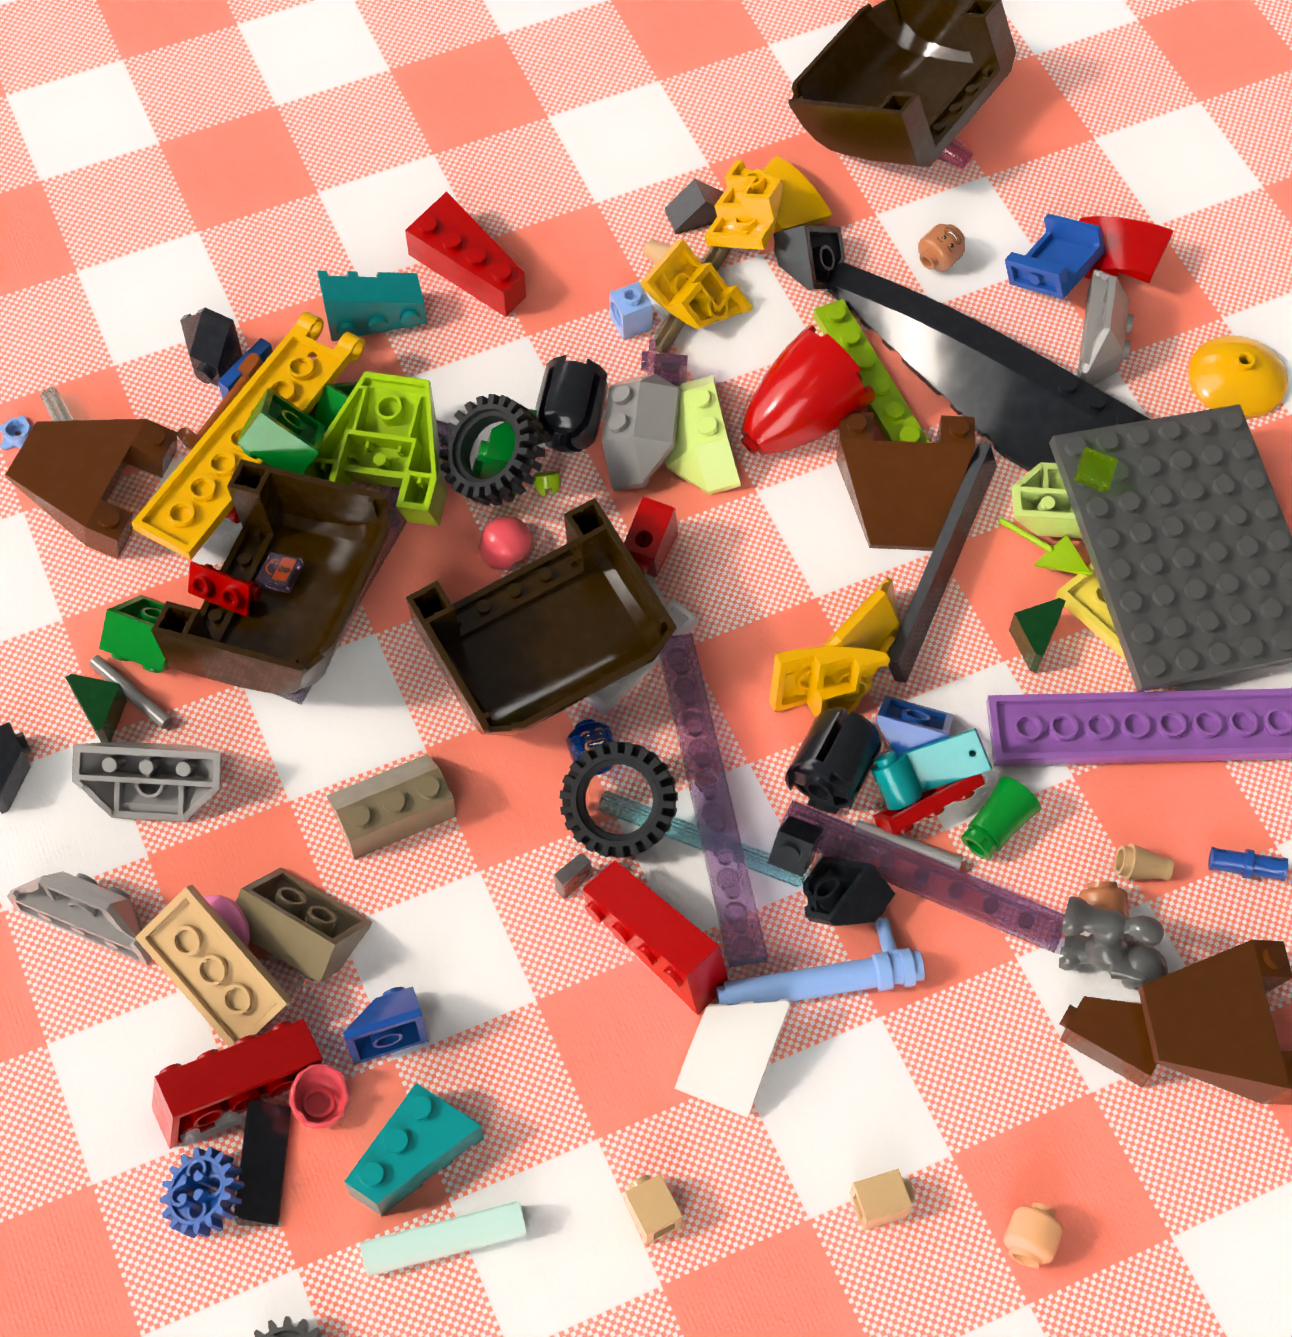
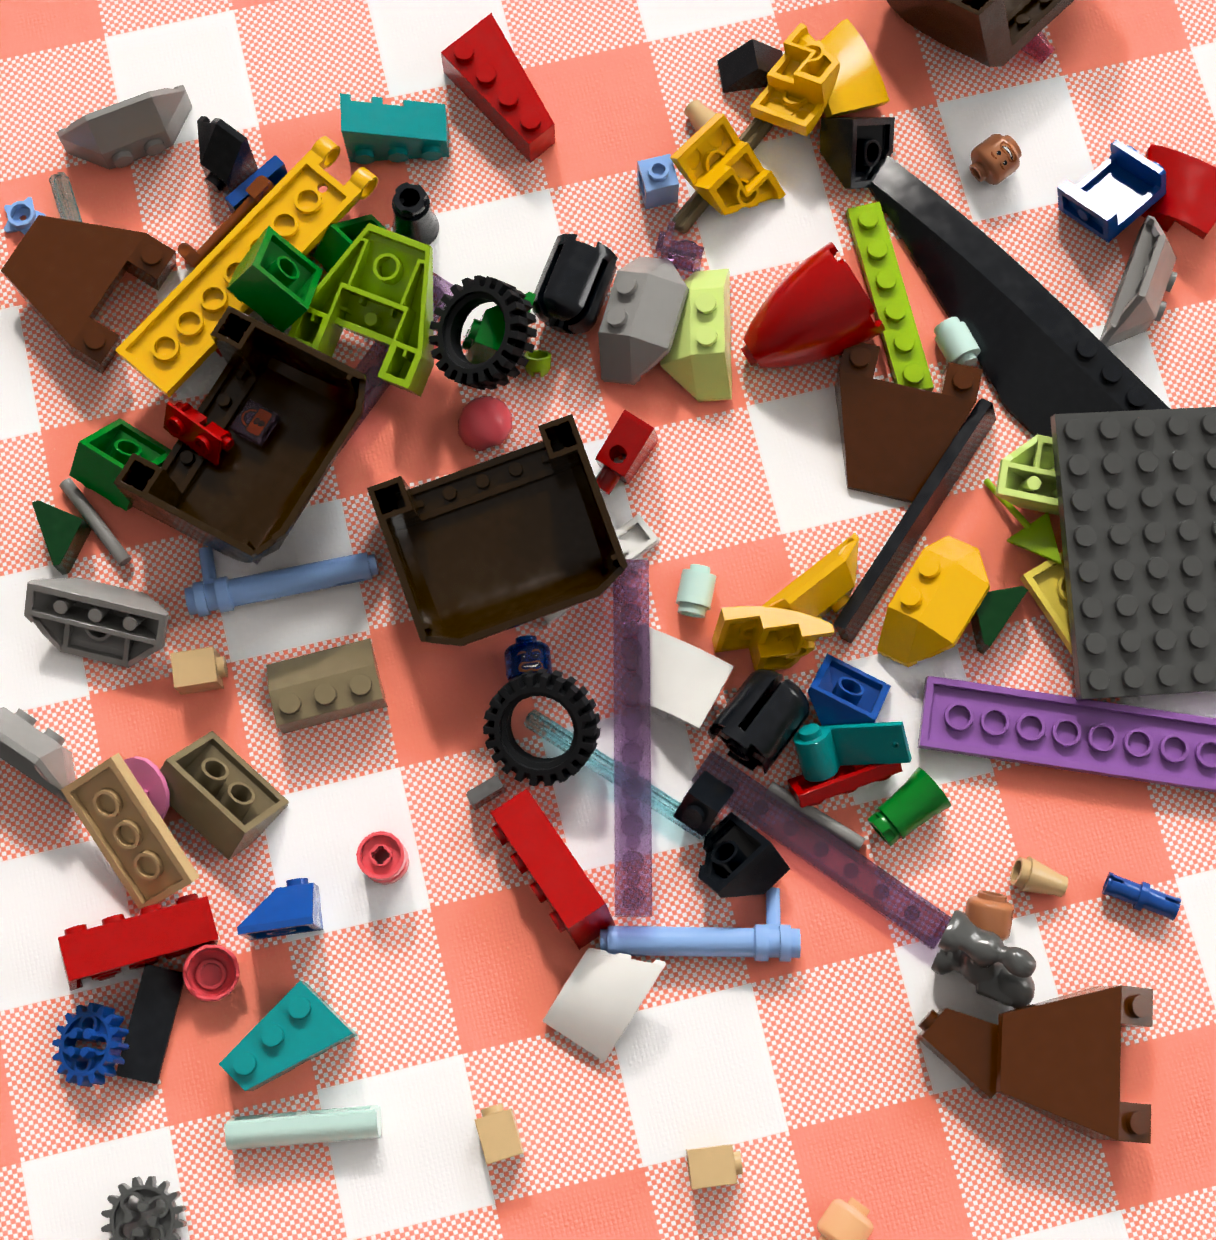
camera: 10 degrees right, 15 degrees up
(111, 338) = (128, 128): none -> light grey wedge
(258, 809) = (198, 670): none -> tan brick
(274, 734) = (228, 593): none -> light blue cylinder
(402, 357) = (414, 214): none -> black plant
(480, 953) = (382, 857): none -> coral wheel
(744, 657) = (695, 591): none -> light aqua brick
(751, 735) = (684, 679): none -> white slope
(941, 400) = (956, 342): none -> light aqua brick
(977, 630) = (934, 602): none -> yellow wedge
(1095, 470) = (1088, 461): clear neon green tile -> none

